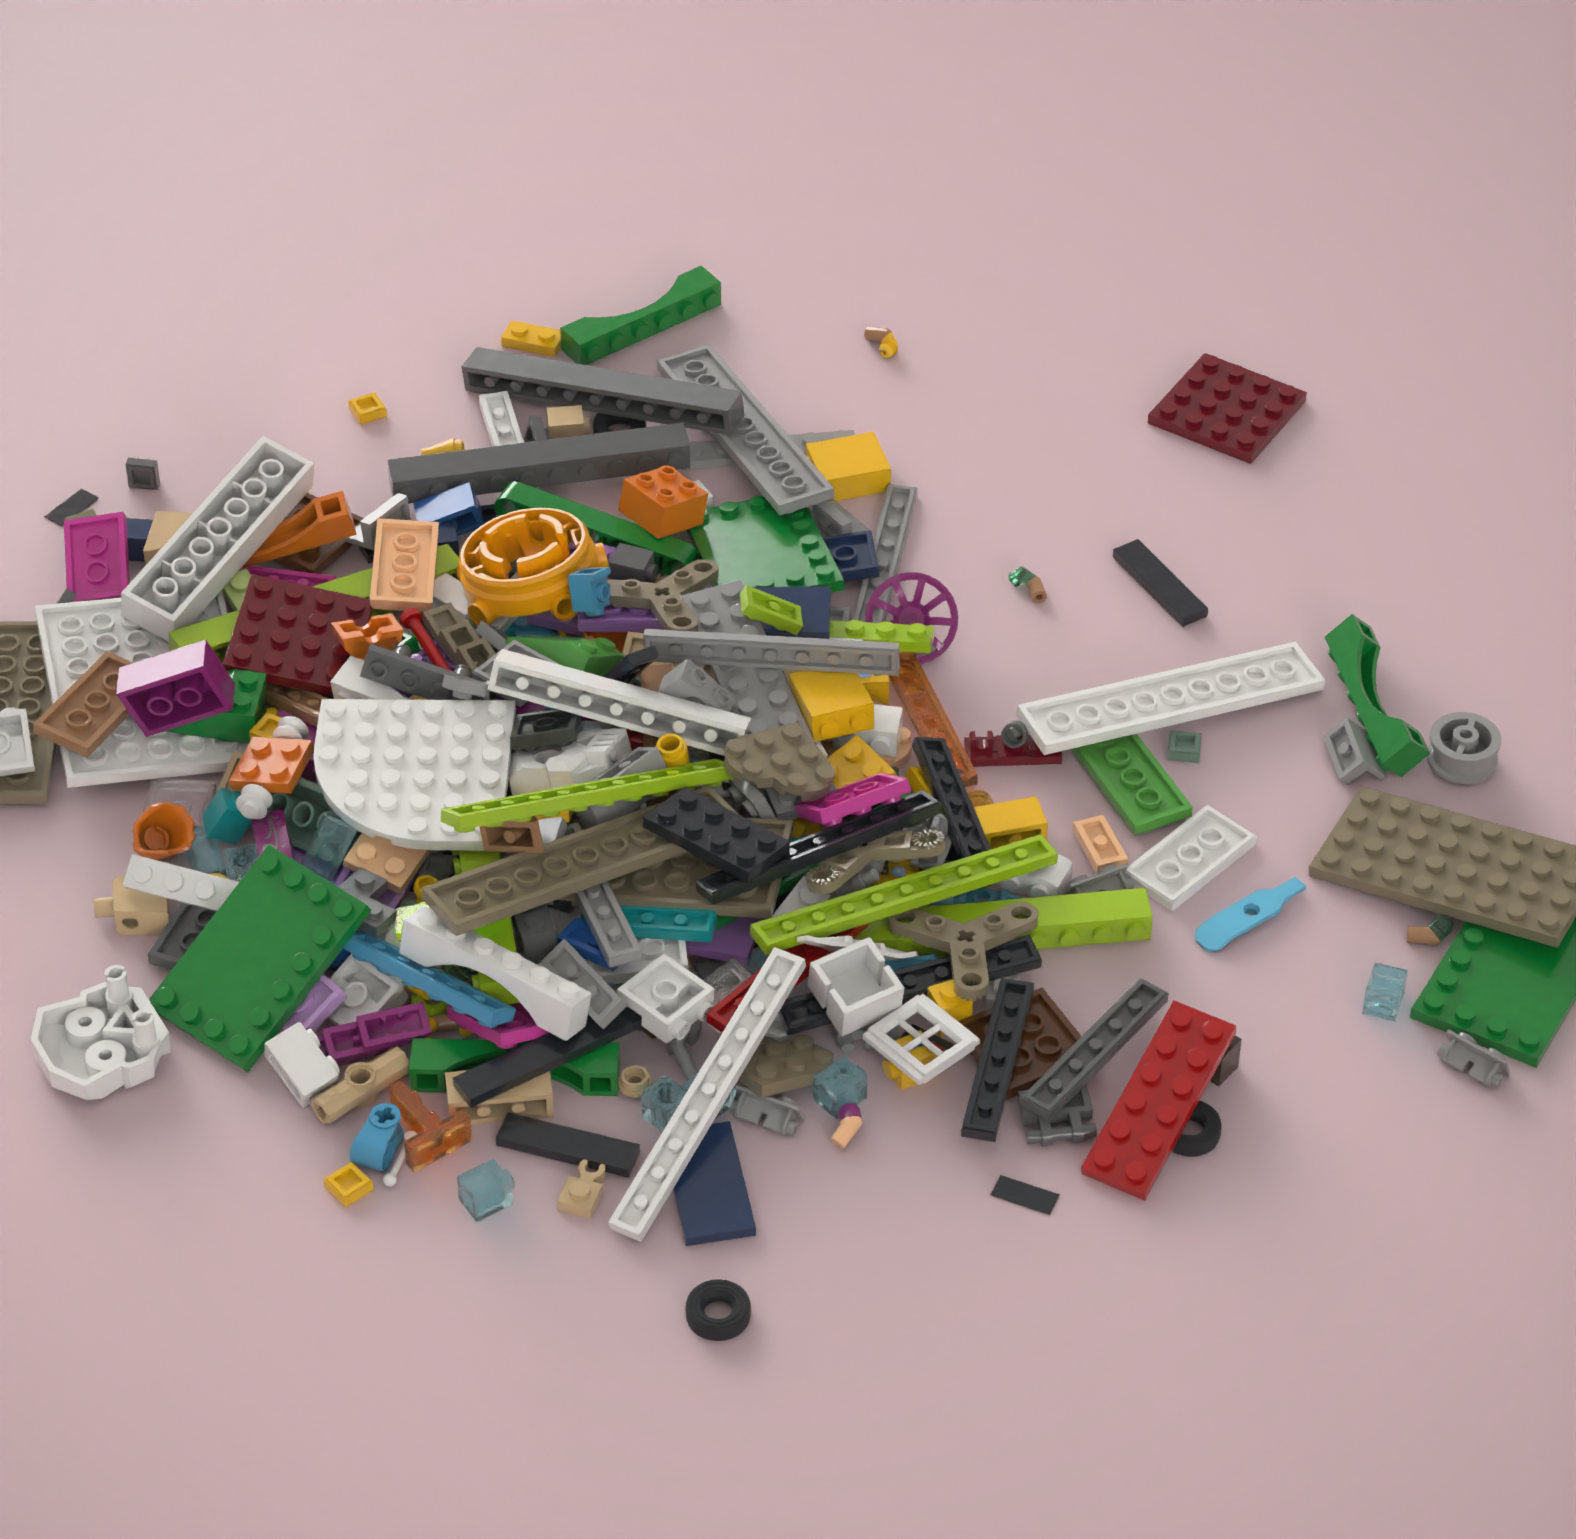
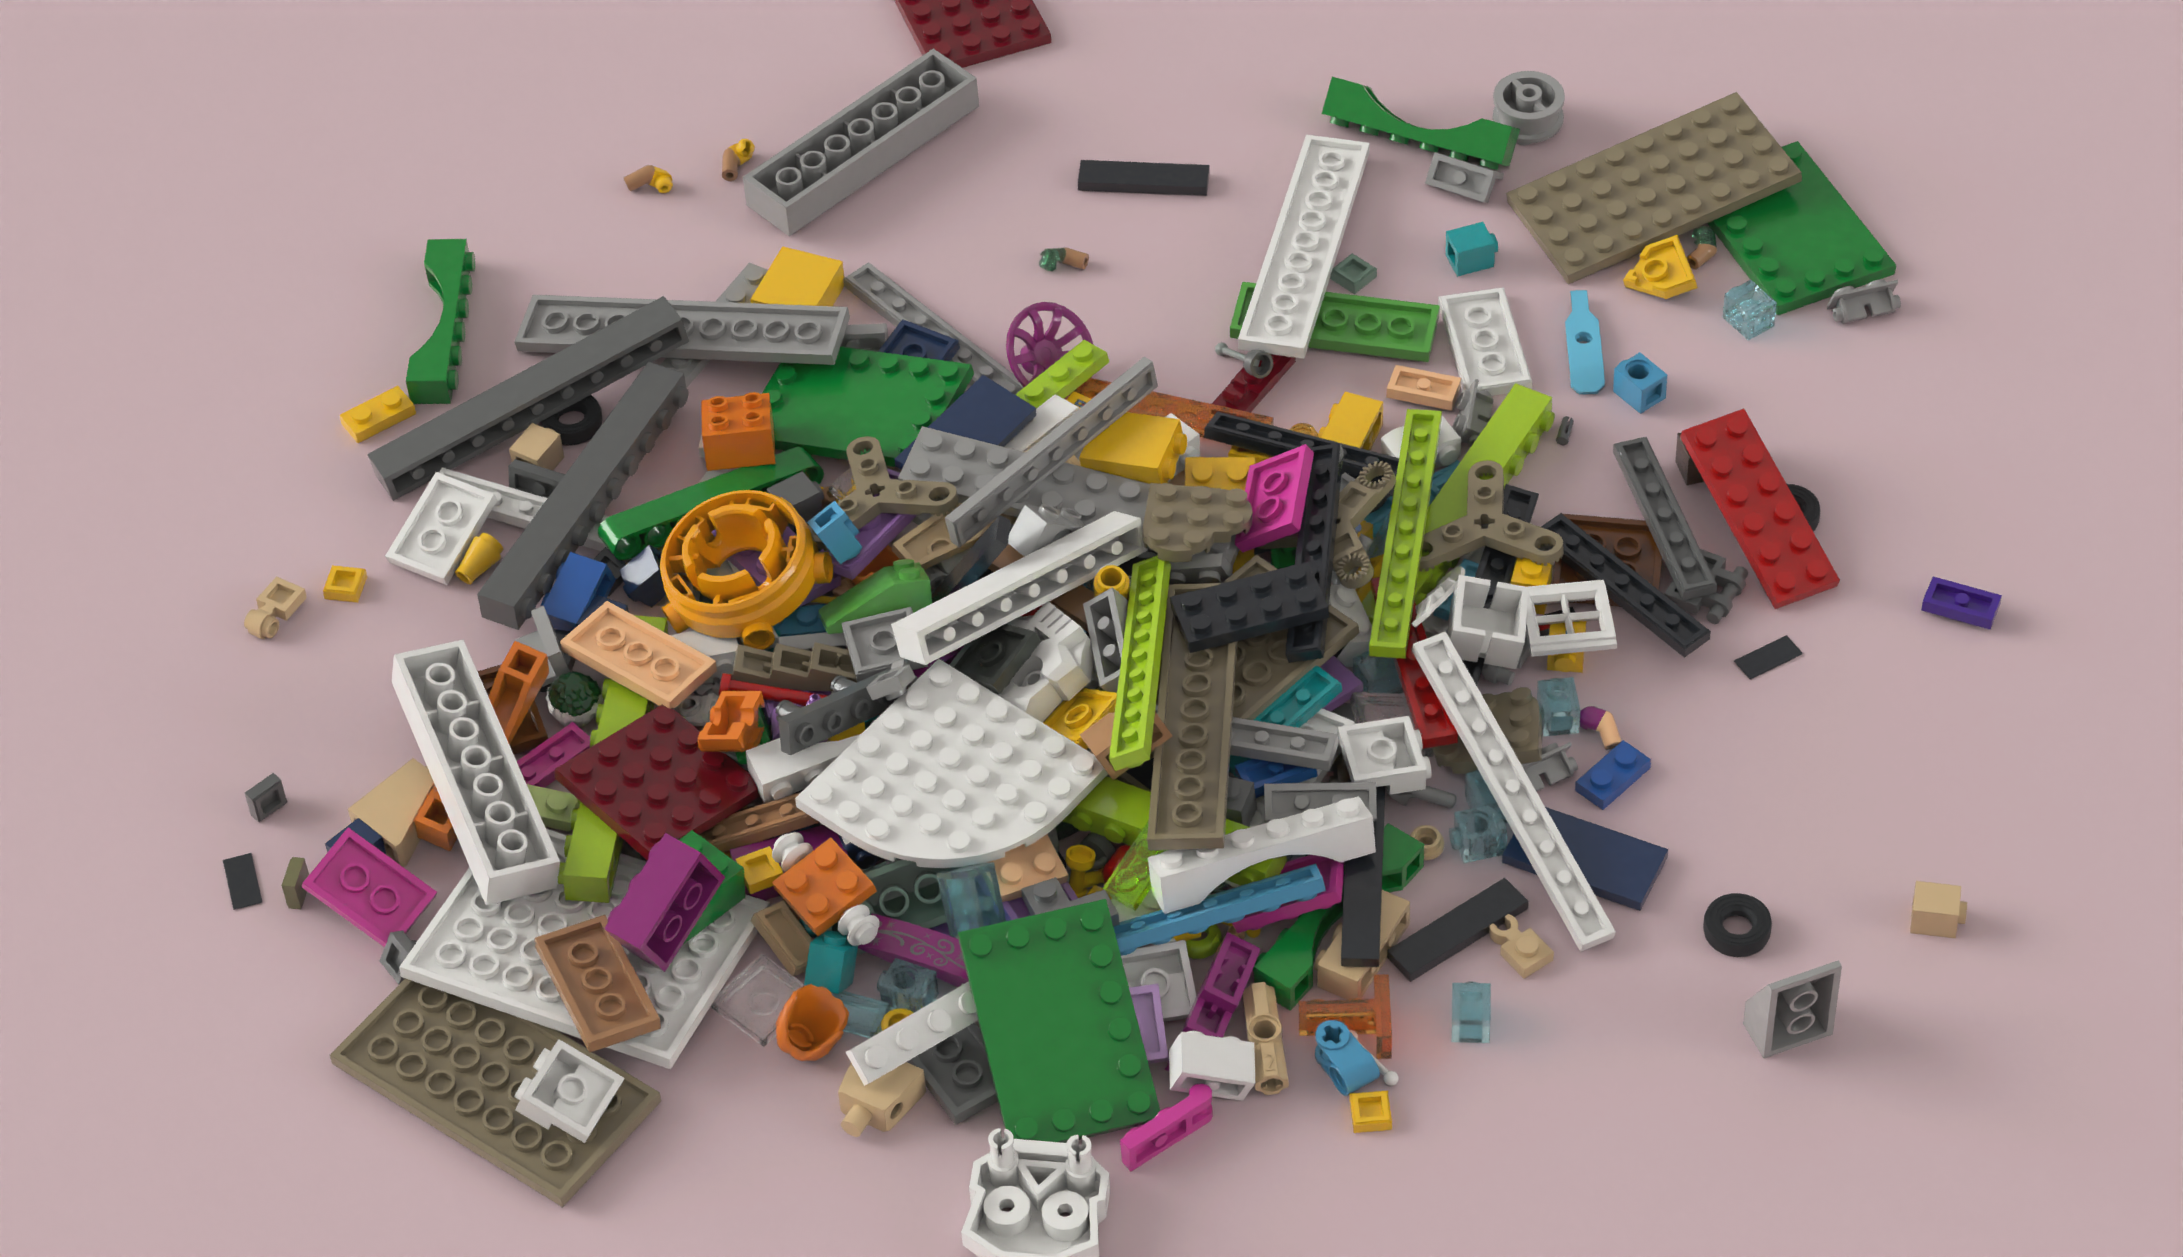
camera: 50 degrees left, 5 degrees up
(233, 1075) = (1167, 1127): none -> dark pink plate
(318, 386) = (277, 600): none -> tan plate
(353, 559) = (574, 698): none -> dark green piece
(448, 417) = (441, 528): none -> white plate
(640, 1377) = (1794, 1010): none -> light grey slope
(771, 610) = (988, 425): lime plate -> none
(807, 1158) = (1613, 775): none -> blue plate
(839, 1425) = (1937, 909): none -> tan brick
(950, 368) = (736, 156): none -> arm
(1024, 416) = (861, 142): none -> light grey brick
(1143, 950) = (1564, 430): none -> dark grey piece
(1194, 1284) = (1961, 602): none -> dark purple plate
(1234, 965) = (1640, 382): none -> dark azure brick
(1275, 795) = (1470, 248): none -> teal brick
(1378, 920) = (1662, 270): none -> yellow plate

